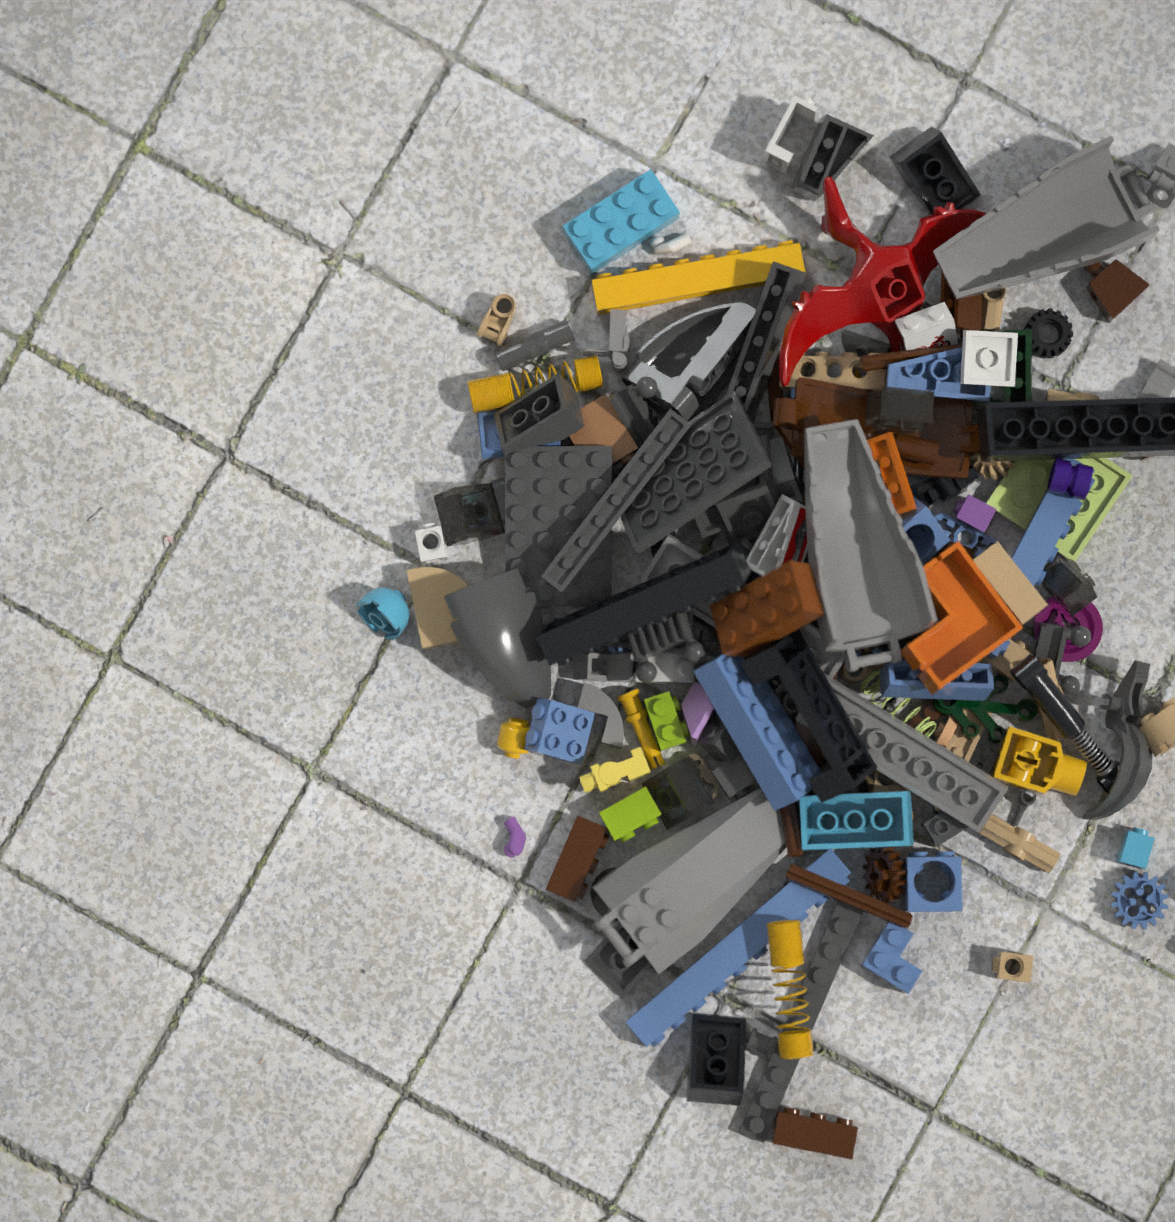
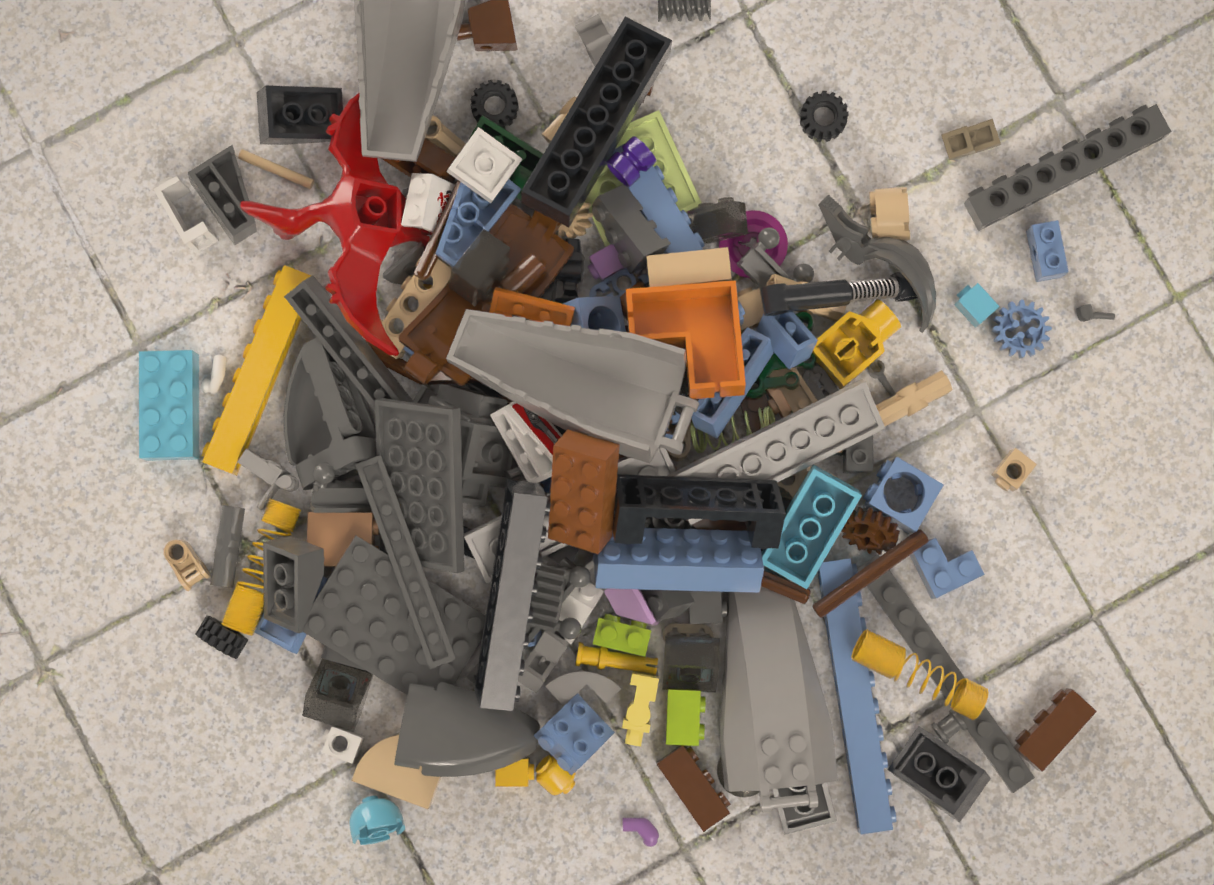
camera: 50 degrees left, 0 degrees up
(457, 388) = (220, 637): none -> black tyre
(496, 703) = (516, 774): none -> yellow brick
(876, 182) = (276, 169): none -> tan bar
(1004, 704) = (788, 337): none -> medium blue brick
(1012, 511) = (628, 228): none -> dark grey wedge

